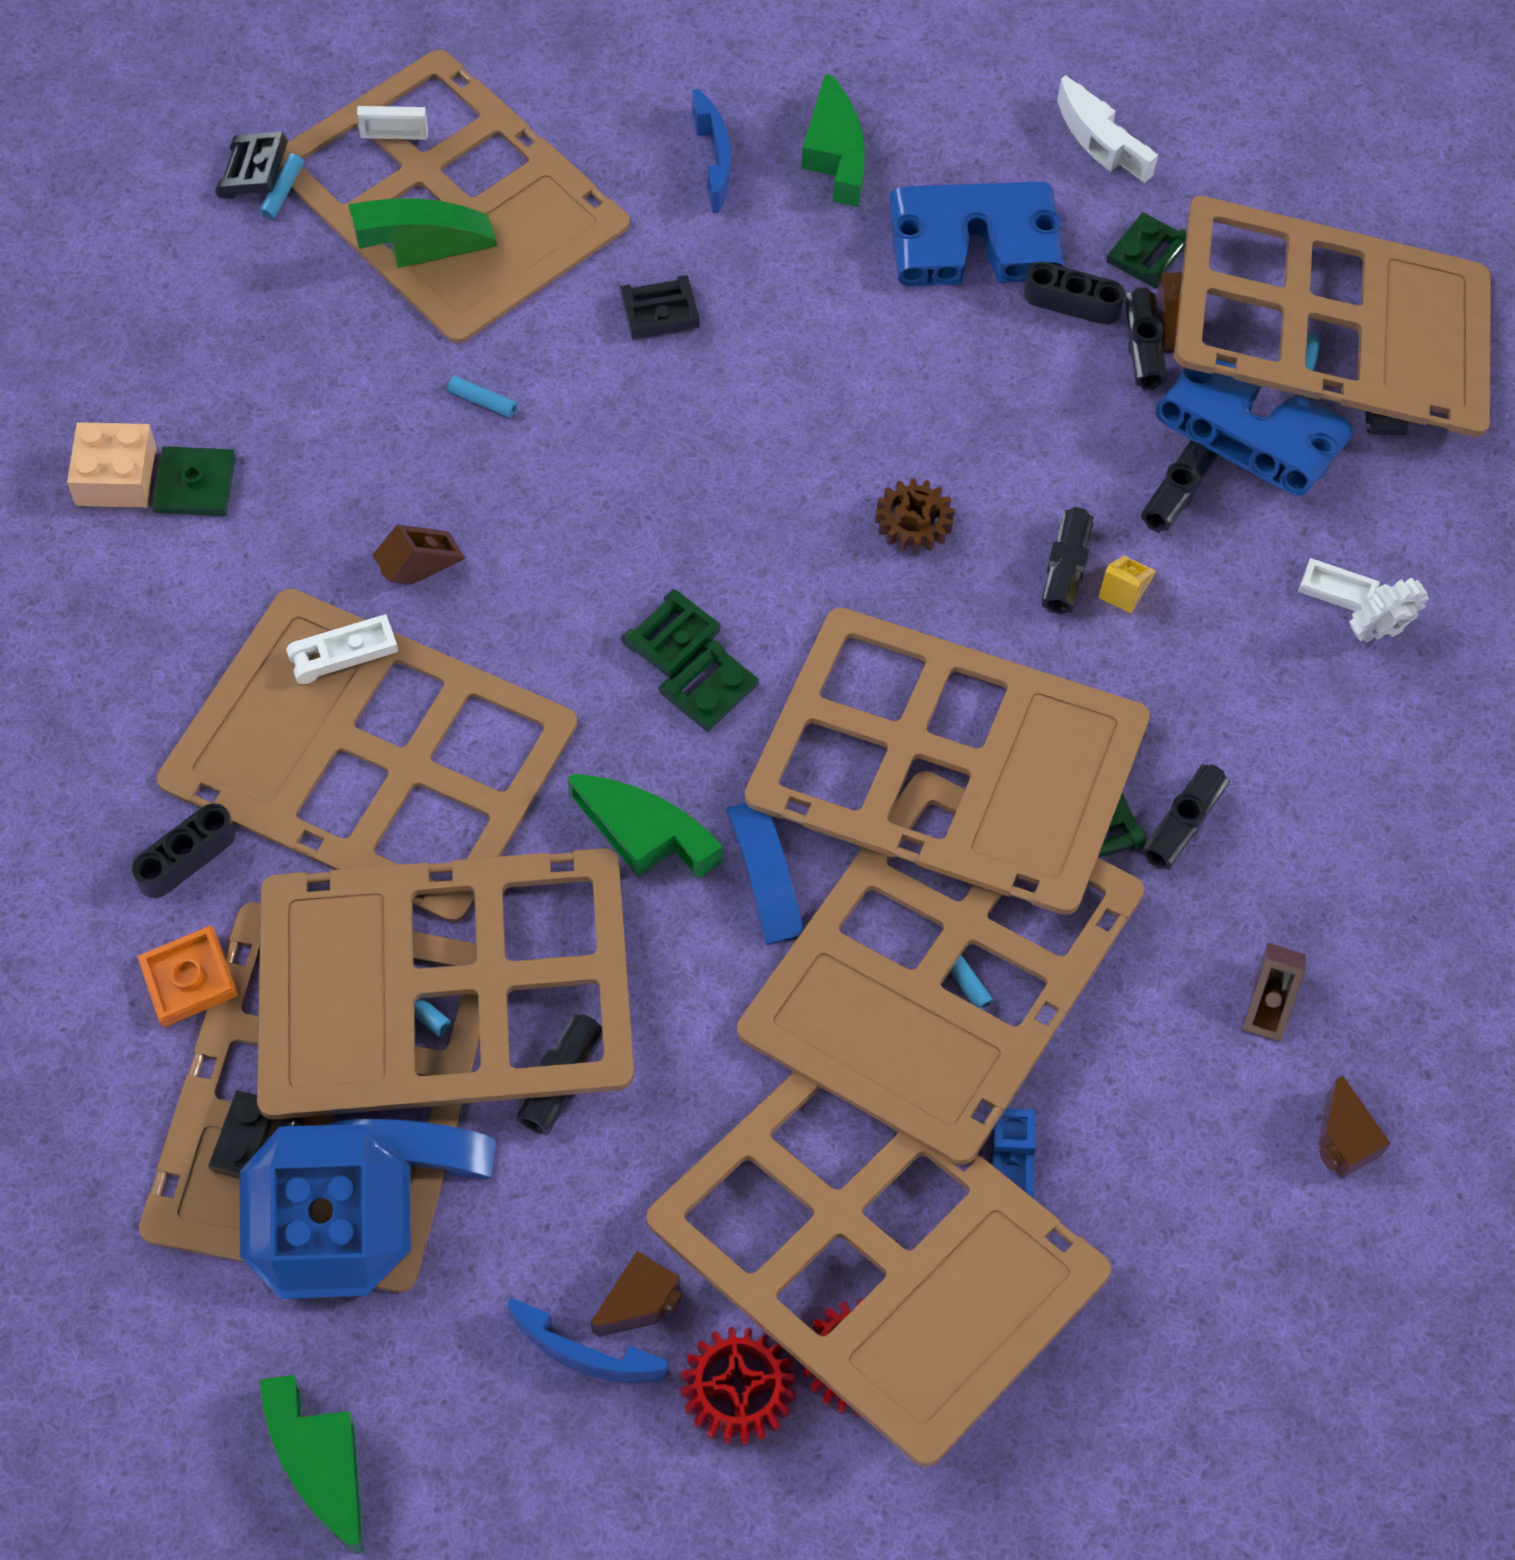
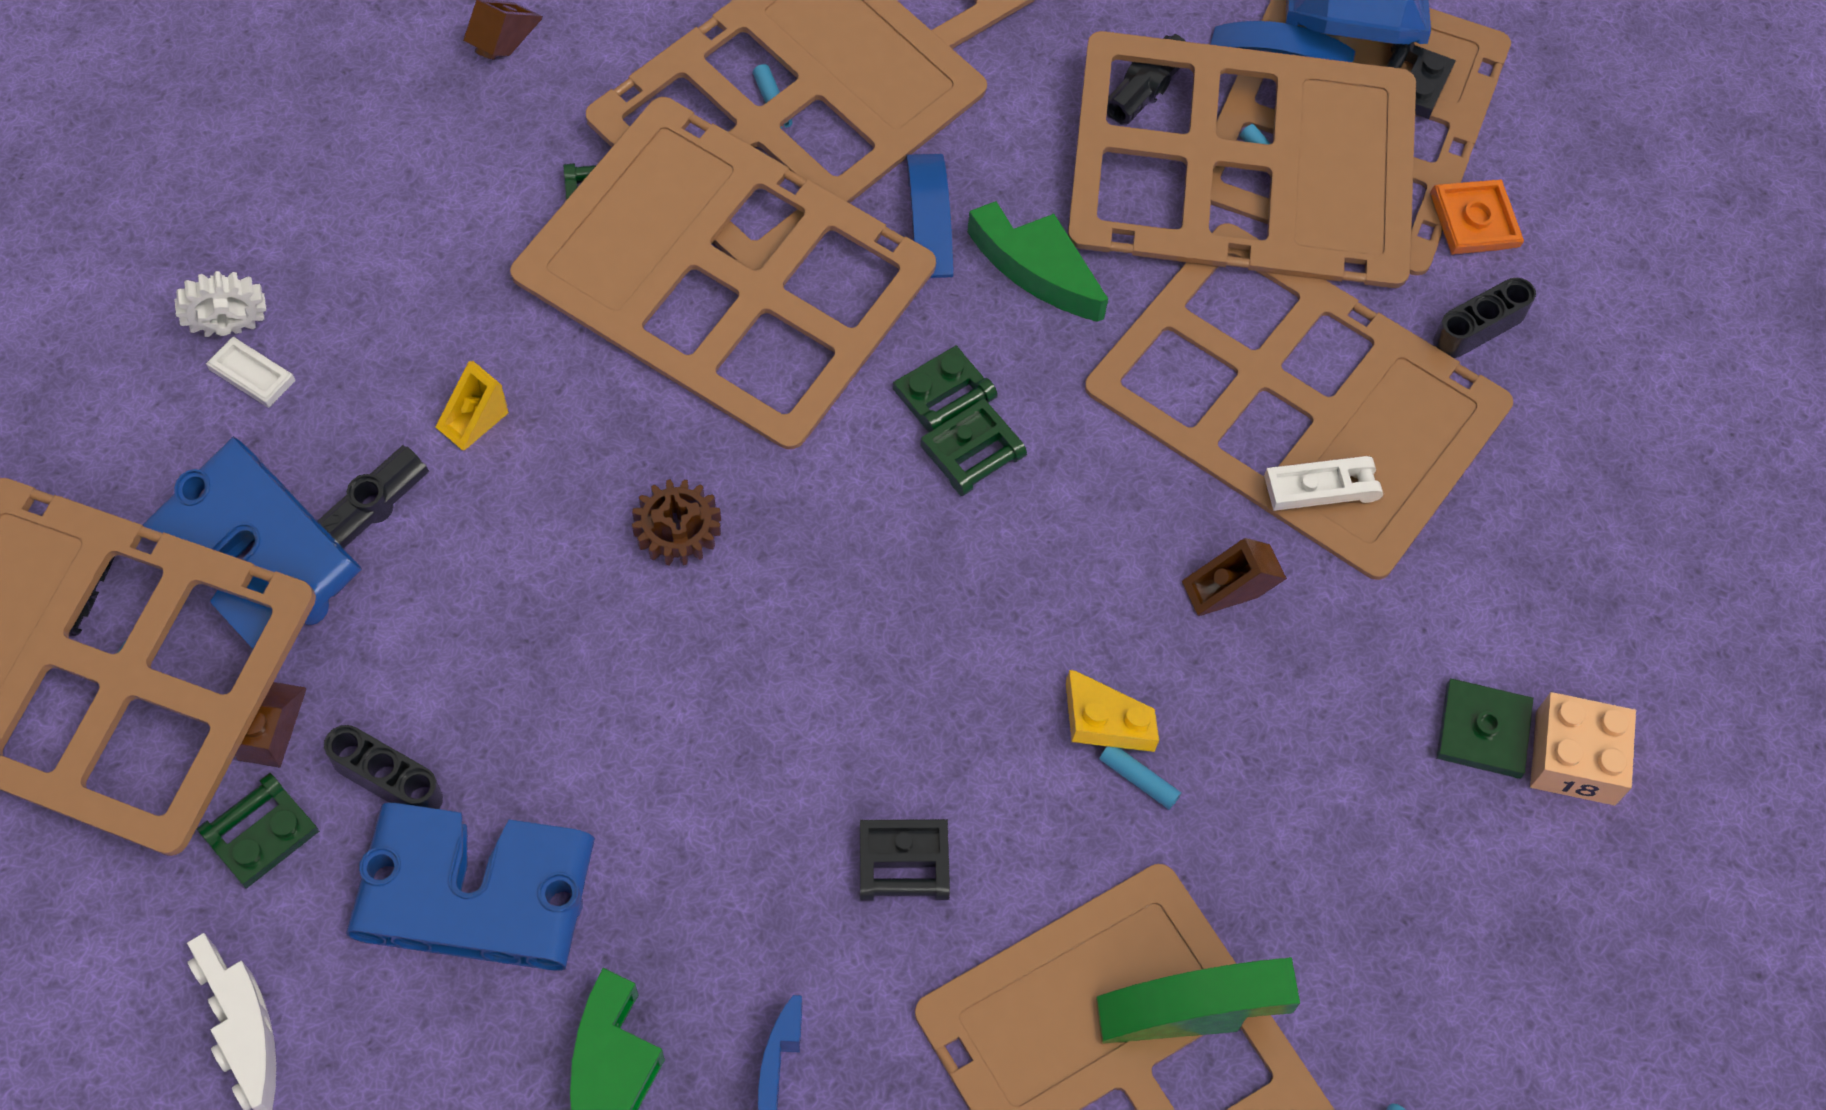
camera: 170 degrees left, 0 degrees up
(515, 428) = (1108, 716): none -> yellow wing
(1067, 561) = (527, 443): black piece -> none
(1145, 339) = (318, 714): black piece -> none
(1176, 832) = (516, 174): black piece -> none

